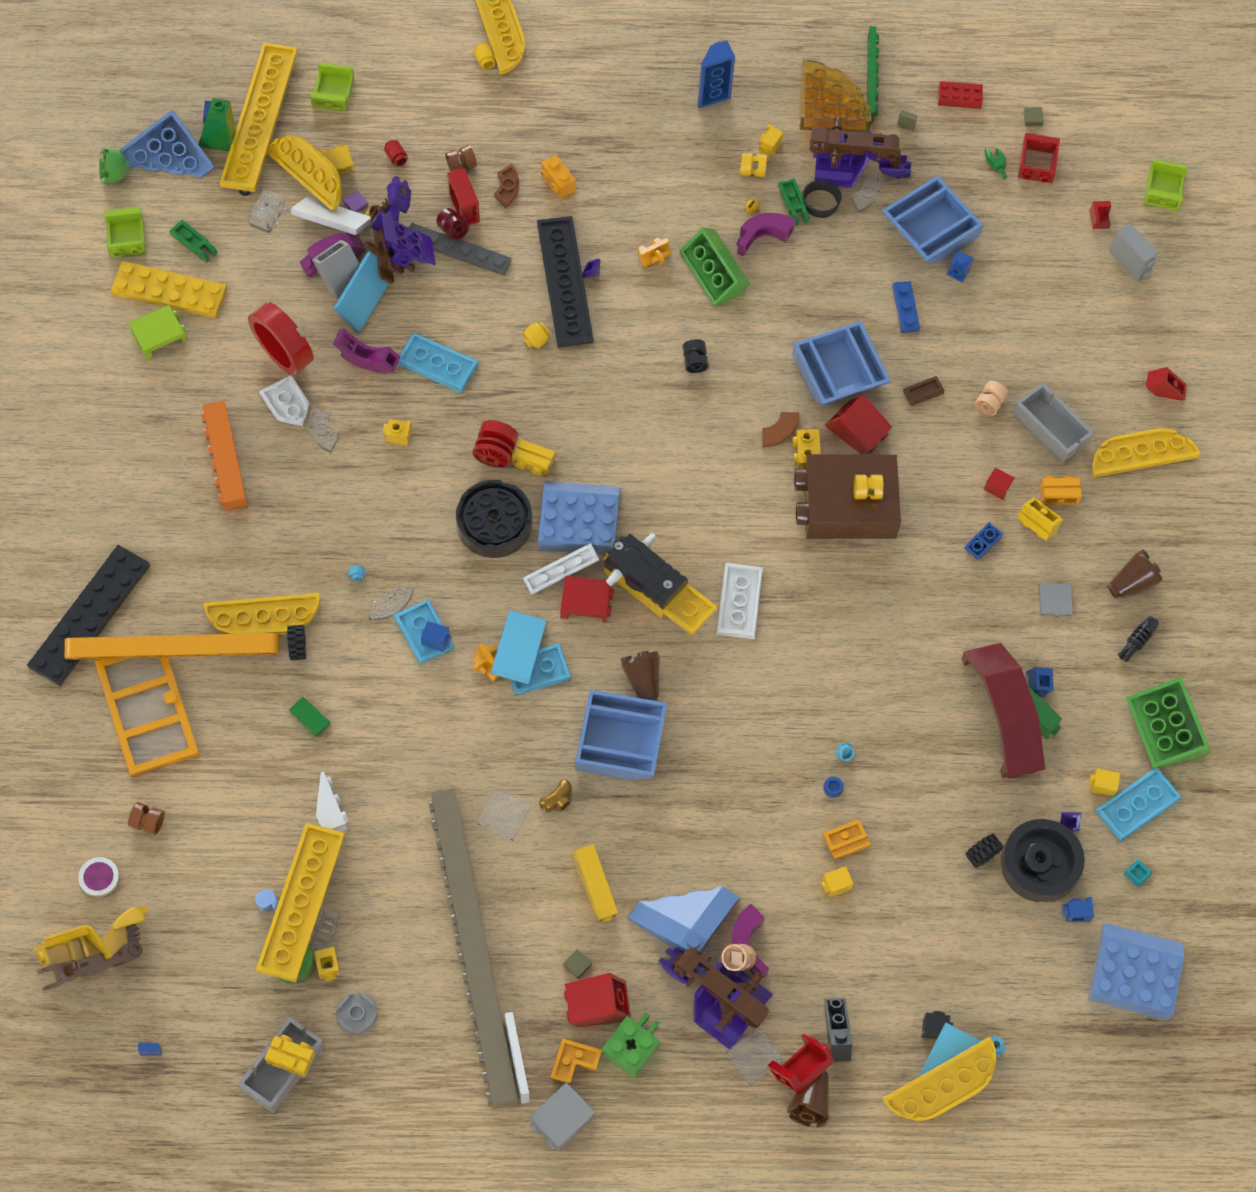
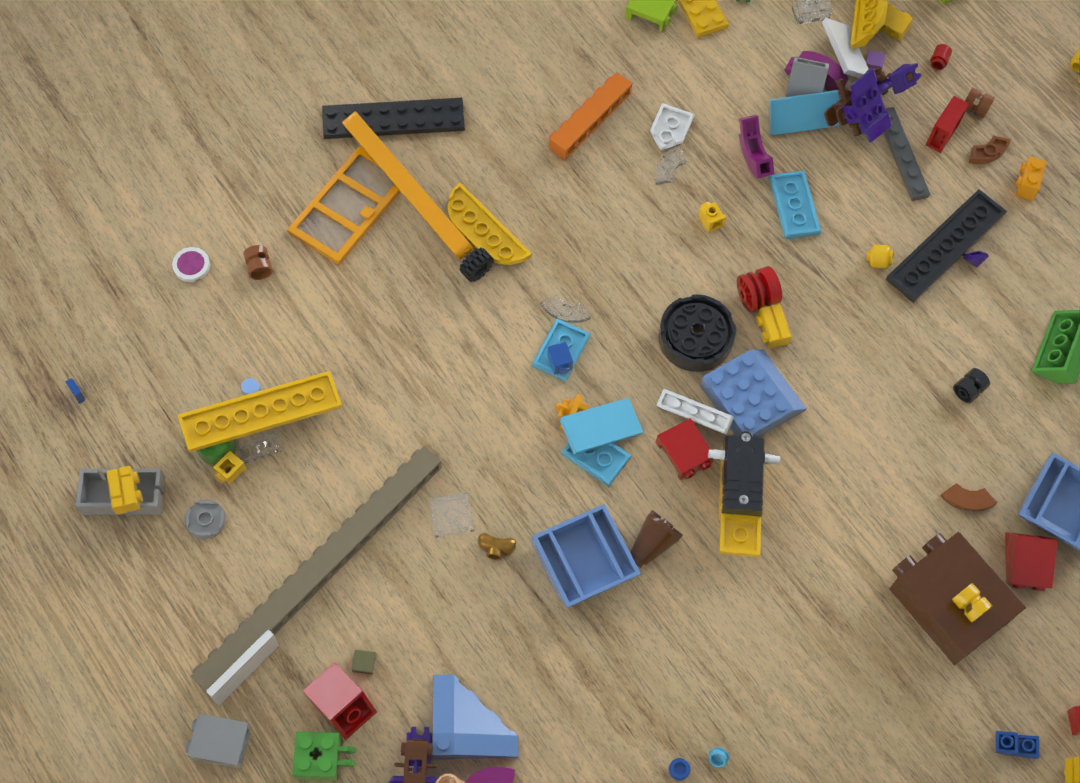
camera: 55 degrees right, 0 degrees up
(88, 952) = (118, 296): yellow piece -> none
(280, 338) = (711, 80): red brick -> none
(309, 716) = (426, 317): green tile -> none
(328, 810) = (356, 382): white slope -> none
(357, 572) = (570, 268): medium azure plate -> none
(452, 224) = (918, 132): dark red wheel -> none
(572, 1055) = (278, 711): light orange plate -> none
(594, 882) = (441, 625): yellow slope -> none
(654, 253) = (1033, 293): light orange hips -> none
(739, 601) = (785, 572): white tile -> none
(805, 443) = (973, 528): yellow brick -> none

